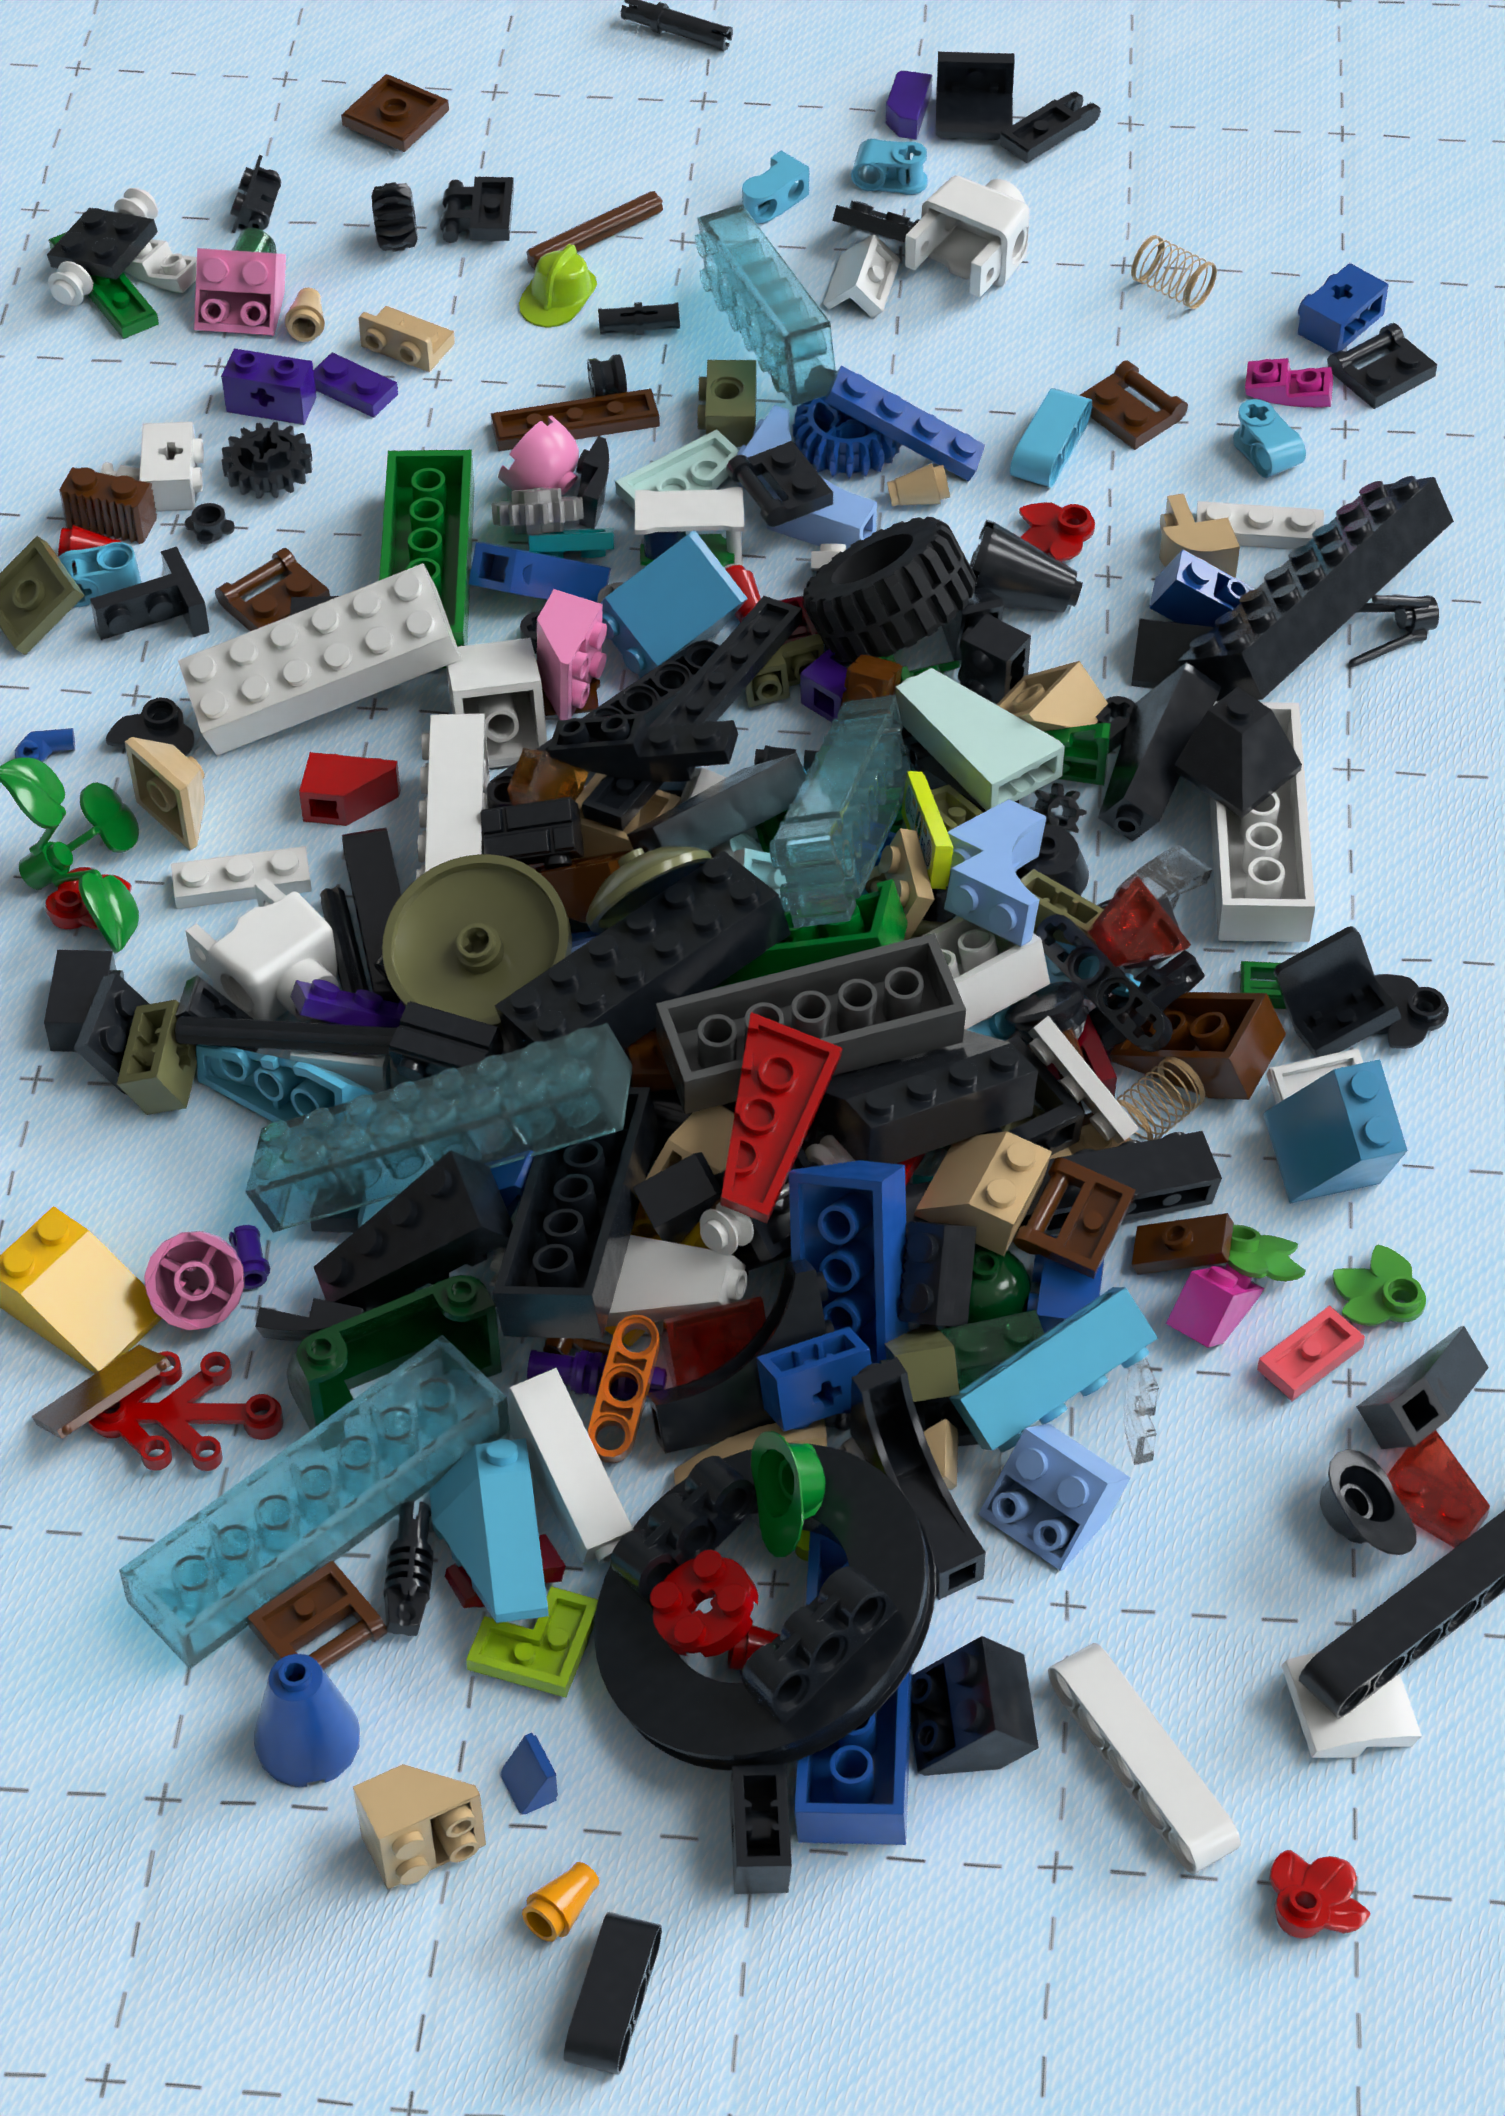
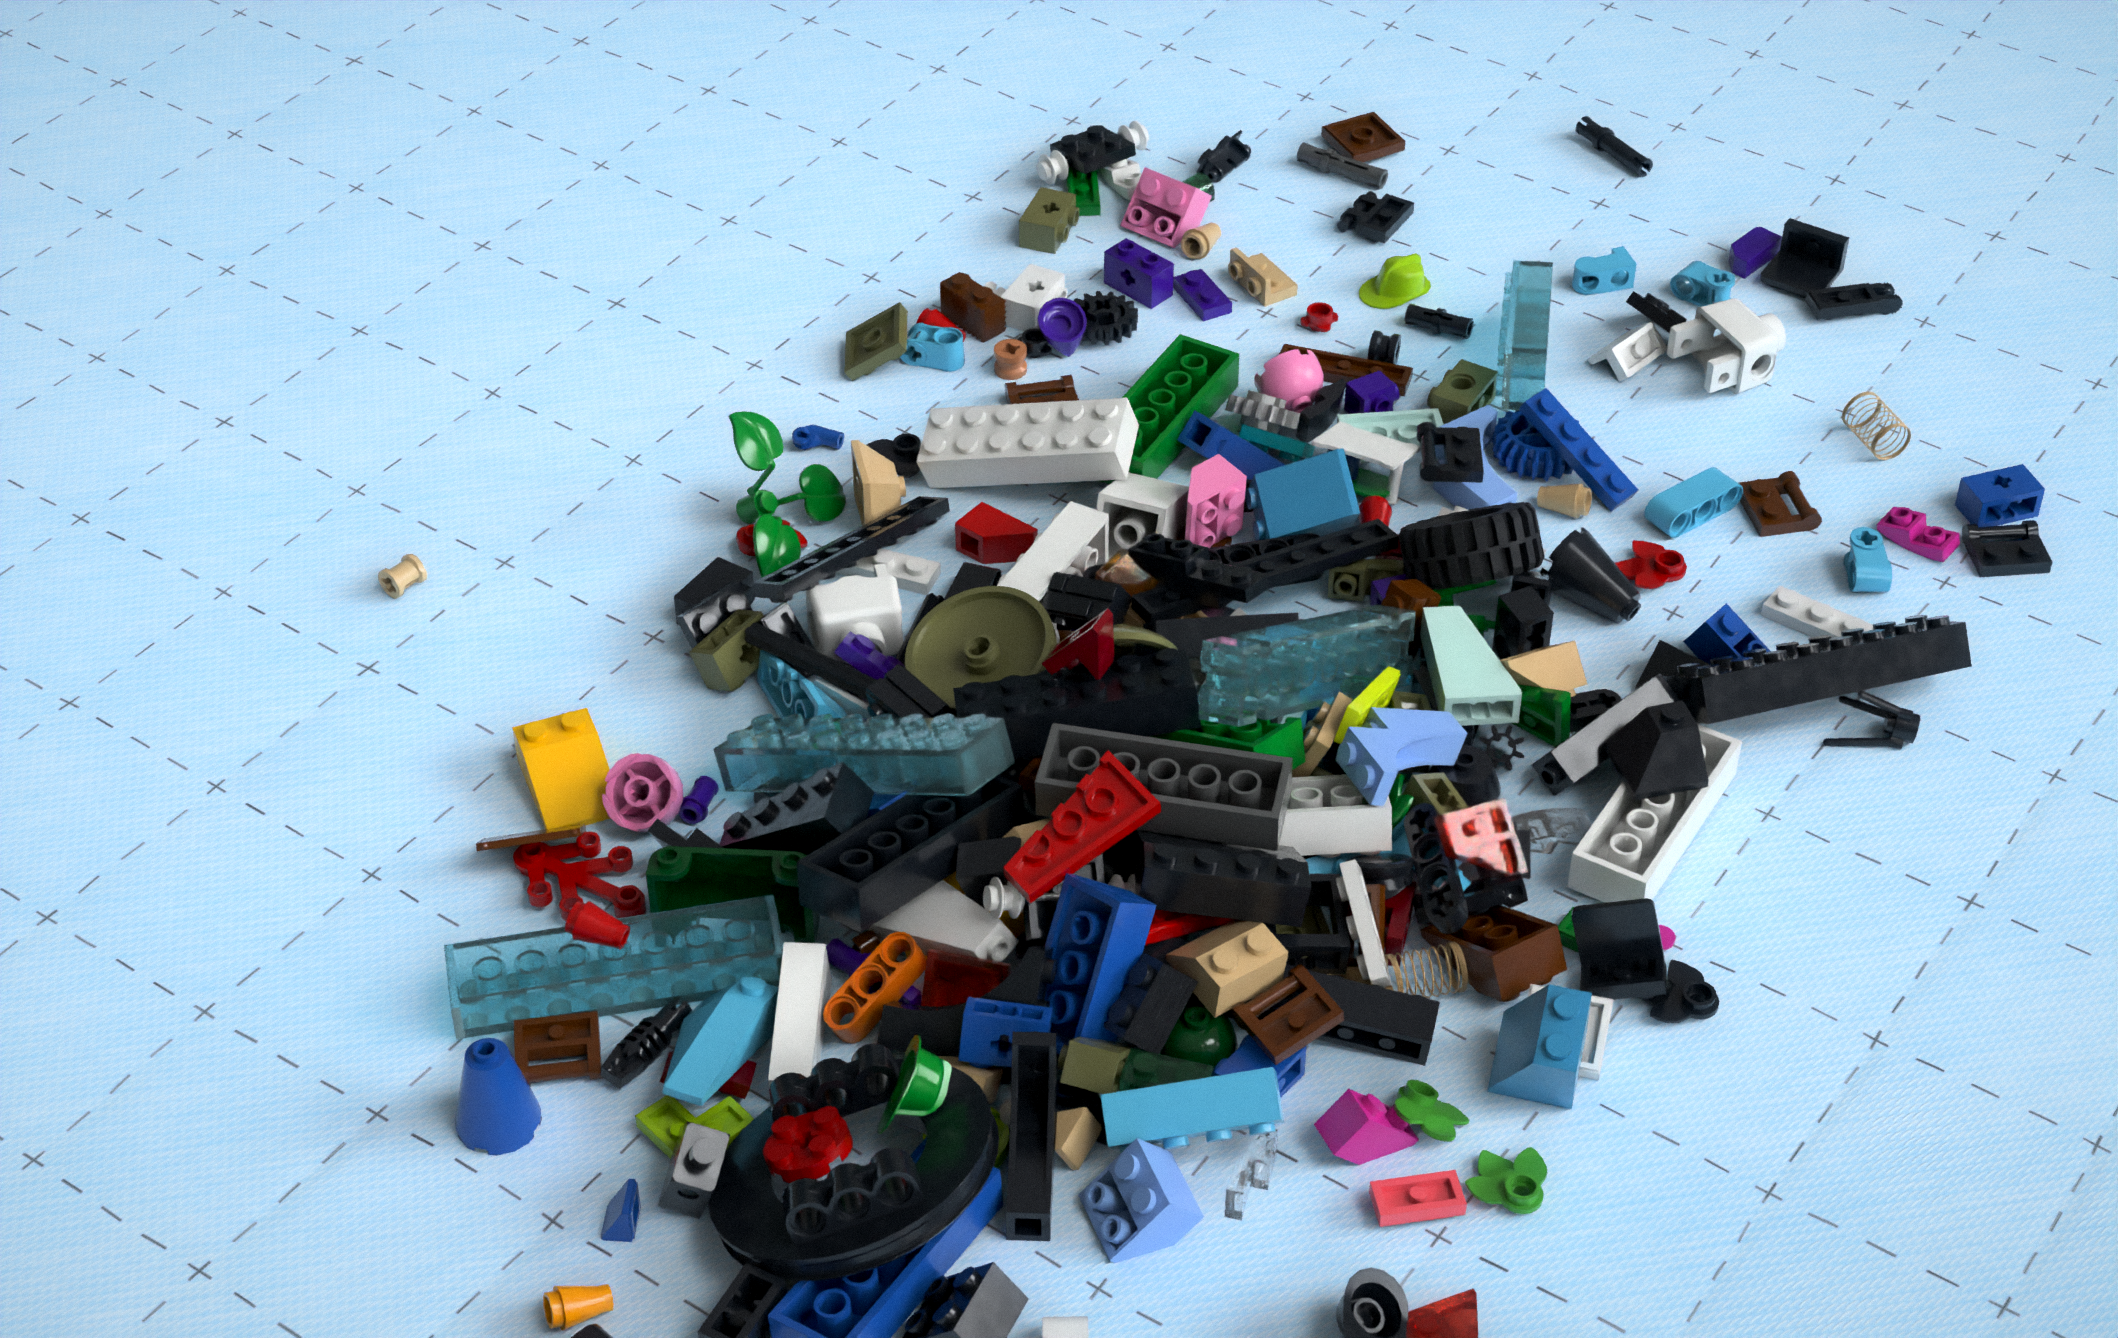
camera: 30 degrees right, 10 degrees down
(112, 356) = (1048, 220): none -> olive brick
(153, 602) = (954, 375): black bracket -> none
(199, 553) = (1010, 359): none -> nougat wheel
(214, 876) = (848, 549): none -> black plate
(236, 487) = (1062, 324): none -> dark purple piece
(286, 1466) = (596, 926): none -> red cone
(394, 216) = (1306, 198): black gear -> none
(395, 157) = (1330, 161): none -> dark grey pin
(417, 1822) = (510, 1199): tan slope -> none
(505, 364) = (1319, 317): none -> red plate
(588, 1688) = (694, 1167): none -> torso
(600, 226) = (1461, 255): reddish brown axle -> none
(629, 894) = (1089, 645): none -> dark red slope
(634, 442) = (1370, 394): none -> dark purple brick
(1182, 1244) = (1372, 1076): reddish brown plate -> none
(1207, 540) = (1758, 611): tan brick -> none
(1424, 1392) = (1489, 1262): black slope -> none

